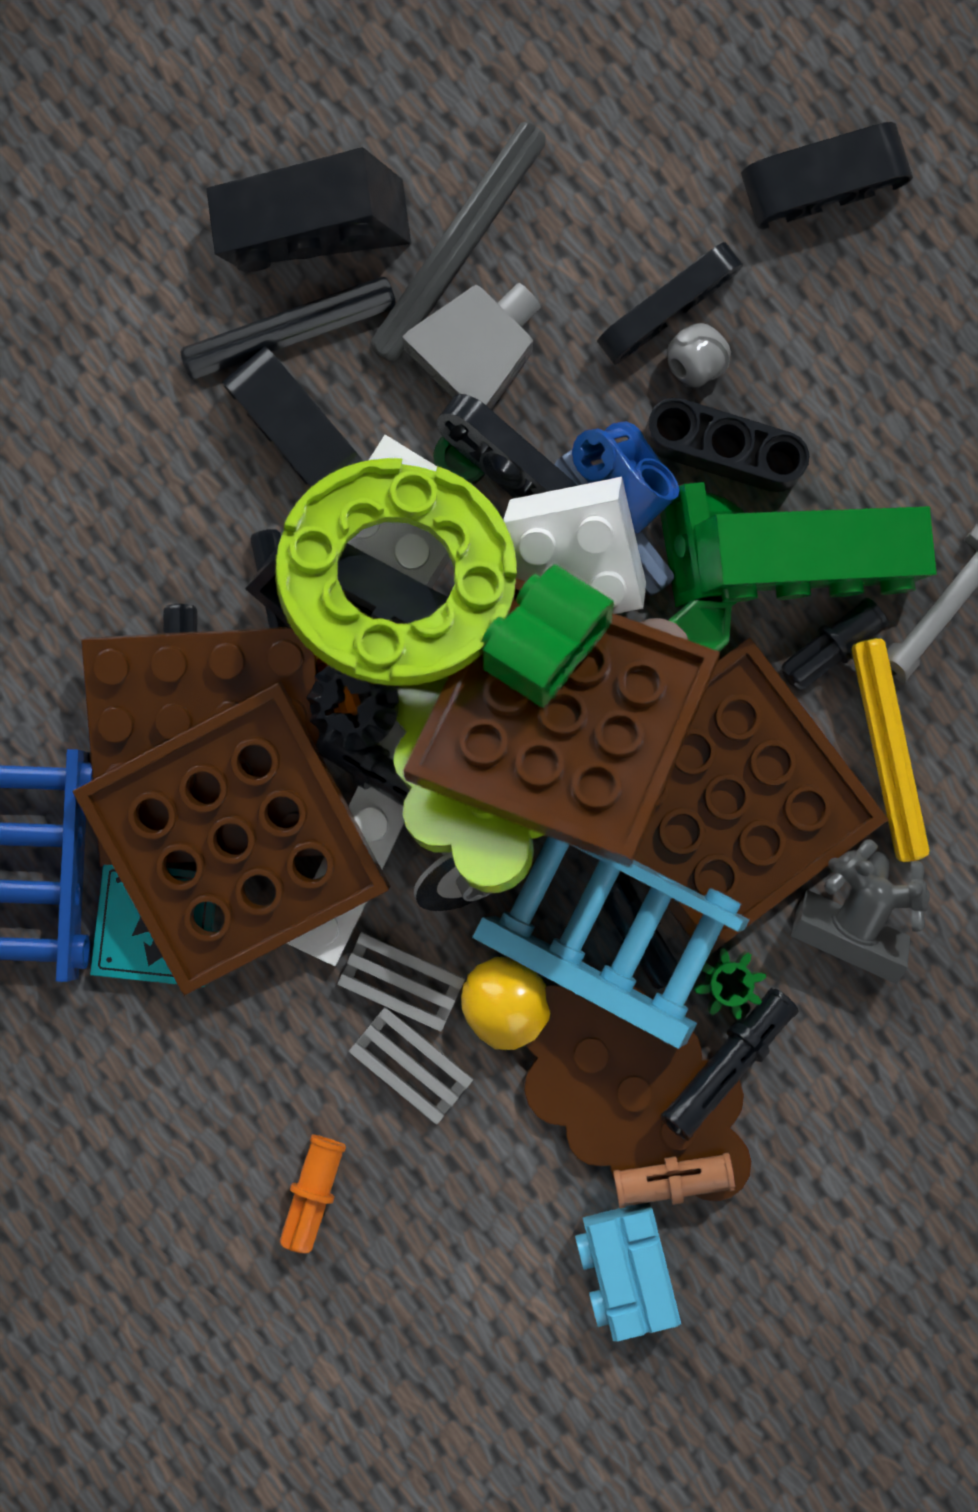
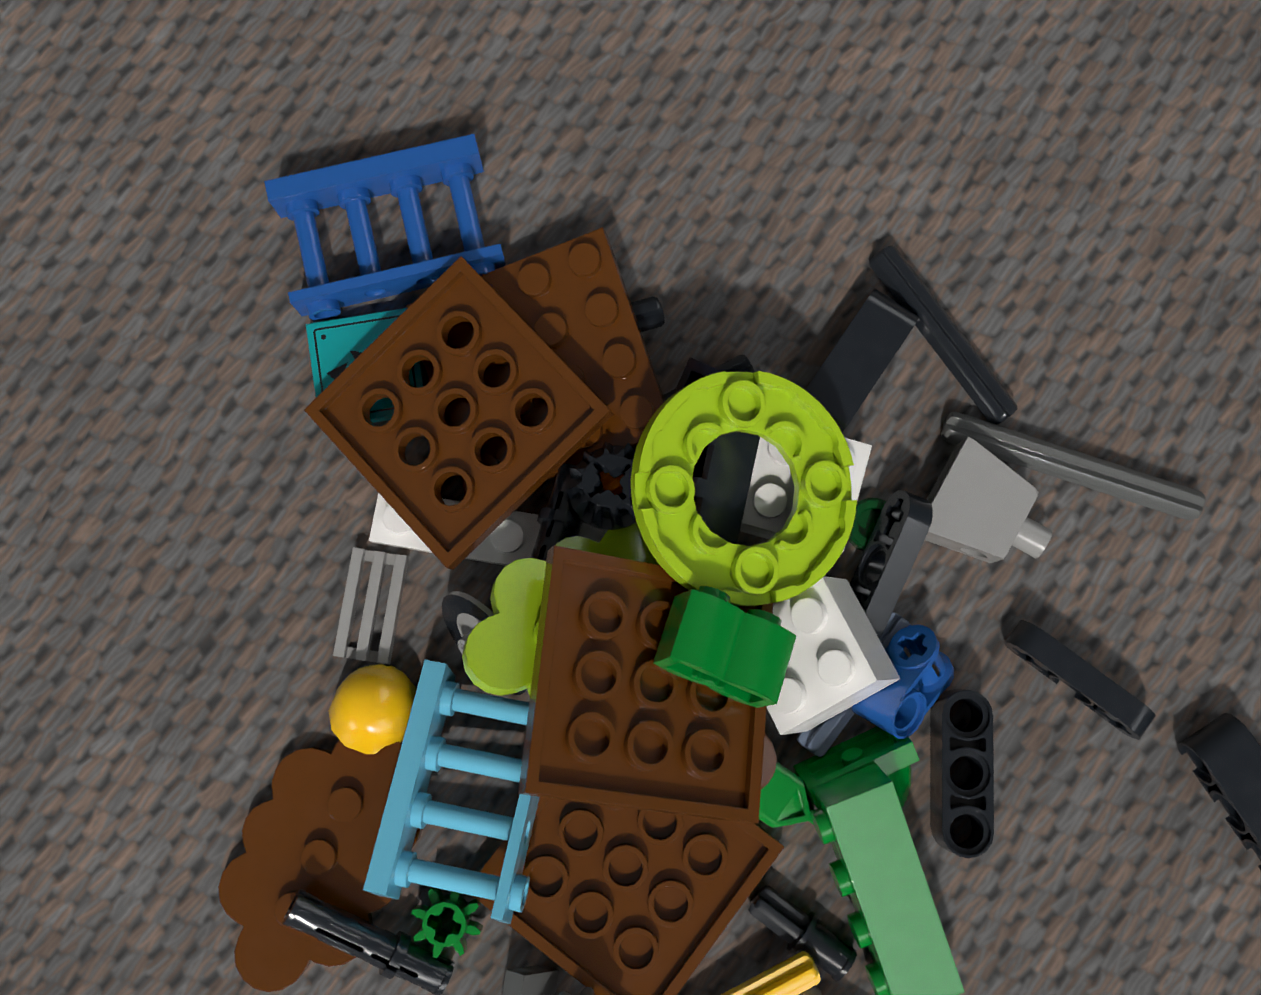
camera: 70 degrees right, 5 degrees down
(309, 211) = (1057, 322): black wedge -> none
(311, 1194) = (154, 578): orange axle -> none
(447, 1095) = (275, 678): light grey tile -> none
(623, 908) = (452, 844): black axle -> none
(630, 1271) = (148, 900): medium azure brick -> none
(674, 1180) = (243, 920): nougat pin -> none
(698, 355) = (1038, 720): light grey piece -> none

